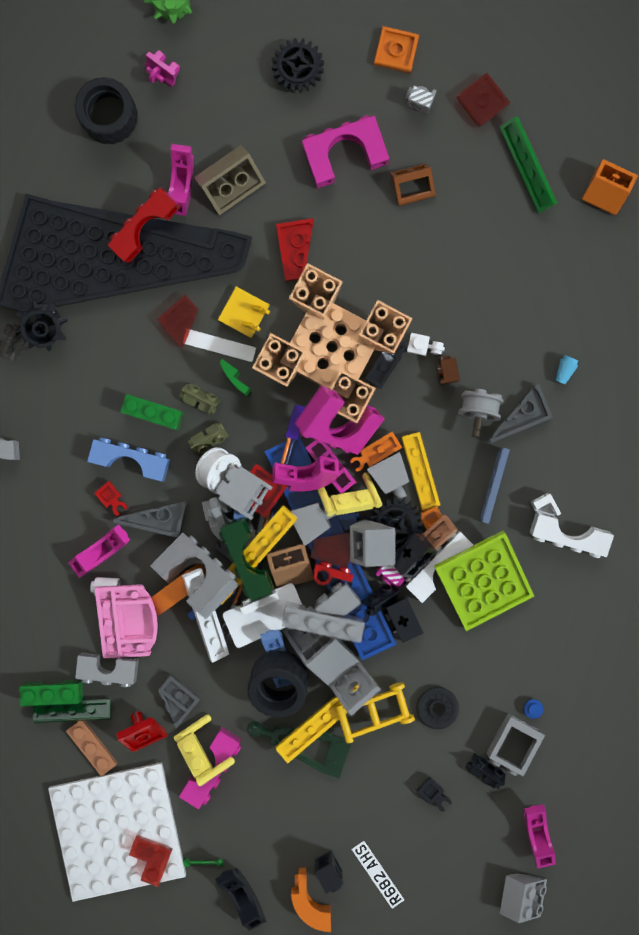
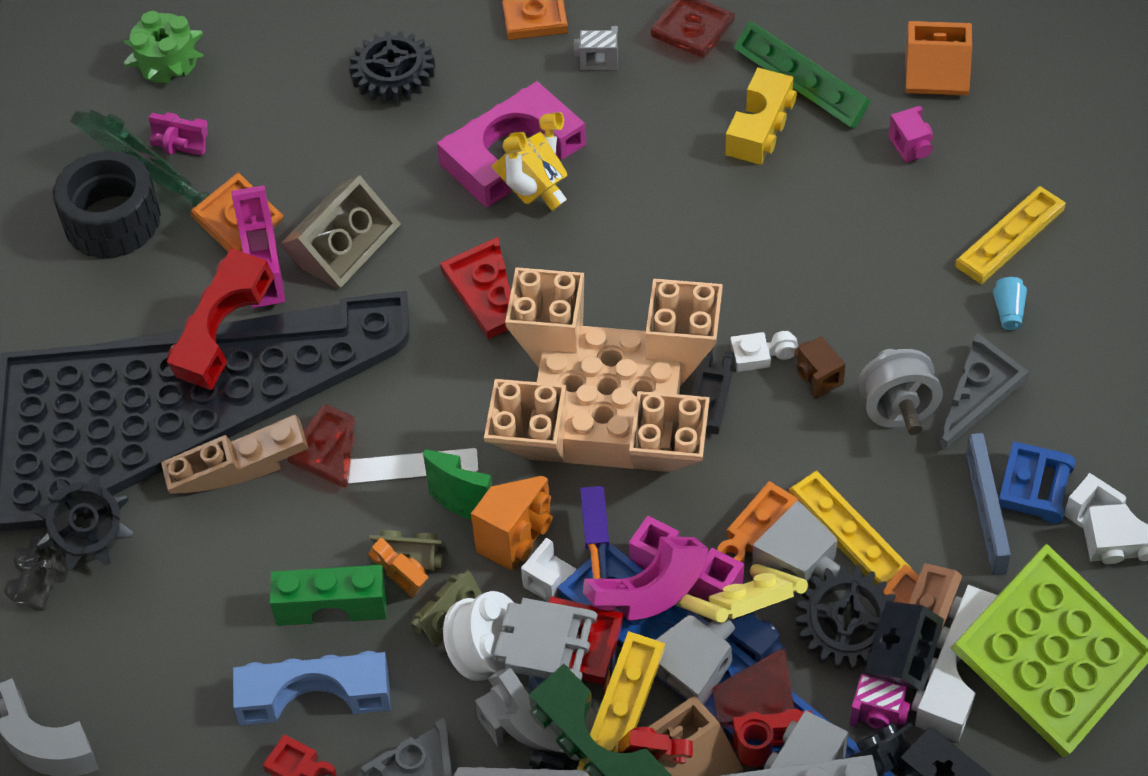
camera: 20 degrees left, 35 degrees down
(121, 51) = (114, 136): none -> clear green plate
(130, 310) = (237, 461): none -> medium nougat slope
(178, 134) = (218, 214): none -> orange tile
(194, 414) = (402, 570): none -> orange plate
(244, 312) = (436, 400): yellow plate -> none
(253, 408) = (511, 520): none -> orange slope
(264, 439) = (545, 571): none -> white panel
(268, 567) = (657, 744): none -> red plate
(349, 179) = (532, 163): none -> torso
(350, 437) = (631, 474): dark pink arch -> none
(372, 544) = (822, 651): light grey slope -> none
(411, 174) = (647, 127): dark orange tile -> none
(503, 175) = (755, 134): none -> yellow arch
(520, 477) = (1024, 478): none -> blue plate
(568, 235) = (910, 134): none -> dark pink brick
(590, 322) = (1010, 235): none -> yellow tile

